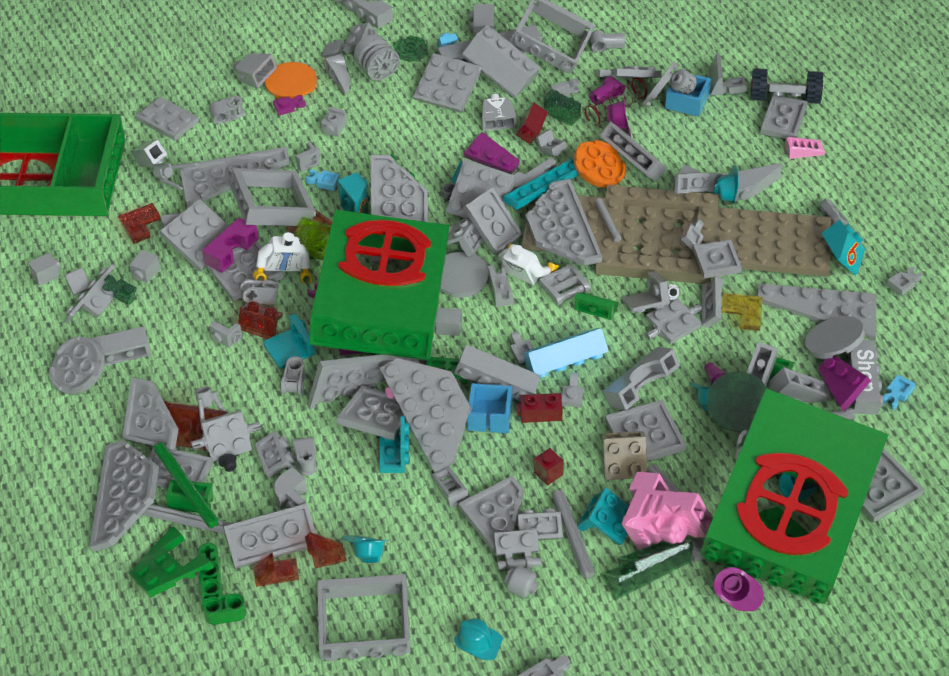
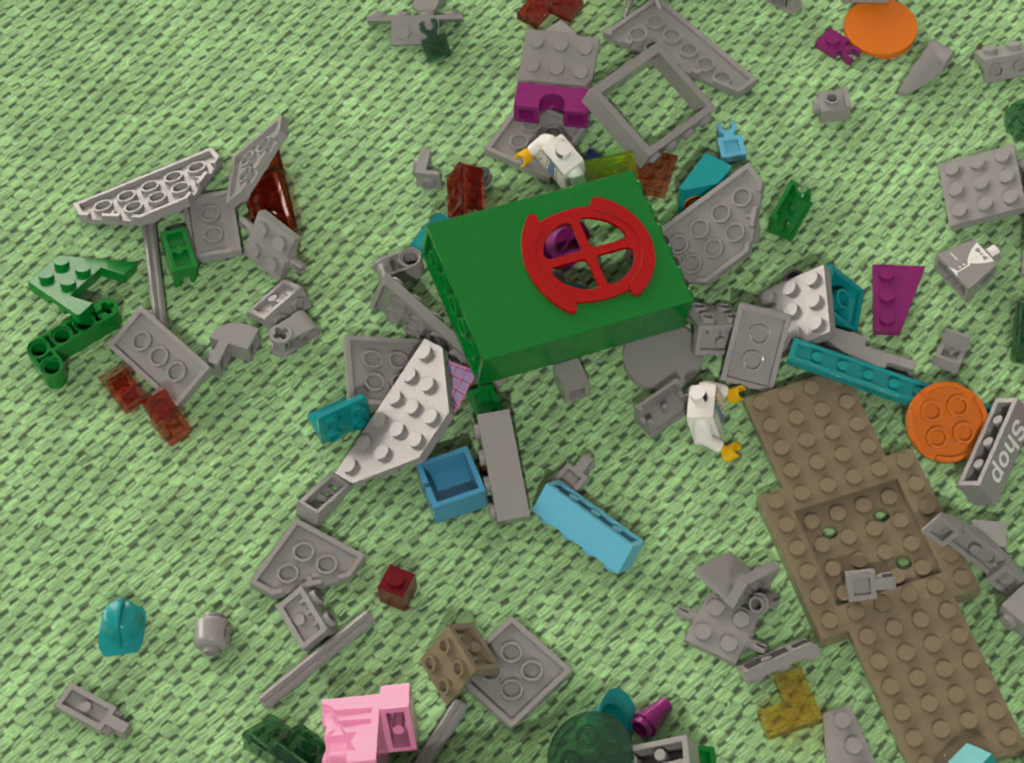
camera: 65 degrees right, 10 degrees up
(77, 365) = (301, 62): light grey tile -> none
(124, 345) = (352, 85): light grey brick -> none
(144, 266) = (482, 46): light grey brick -> none
(186, 485) = (177, 242): green axle -> none
(204, 399) = (297, 197): light grey plant -> none
(228, 462) = (247, 268): black piece -> none
(261, 291) = (502, 170): light grey piece -> none
(308, 158) = (753, 111): light grey bracket -> none
(333, 49) = (965, 43): light grey slope -> none
(362, 587) = (74, 461): light grey window -> none
(366, 548) = (192, 451): teal piece -> none
(376, 57) = (970, 90): light grey wheel -> none
(516, 542) = (263, 602): light grey plate -> none
(531, 123) = (970, 313): dark red brick -> none
(540, 408) = (487, 539): dark red brick -> none
(561, 225) = (791, 424): light grey plate -> none
(561, 280) = (714, 470): light grey plate -> none
(572, 394) = (534, 567): light grey plate -> none
(595, 305) = (699, 528): green panel -> none
(606, 514) = (354, 676): teal bracket -> none
(607, 219) = (837, 474): light grey bar -> none
(656, 364) = (562, 619): light grey arch -> none
(717, 259) = (841, 632): light grey plate -> none
(728, 185) = (994, 591): teal piece -> none

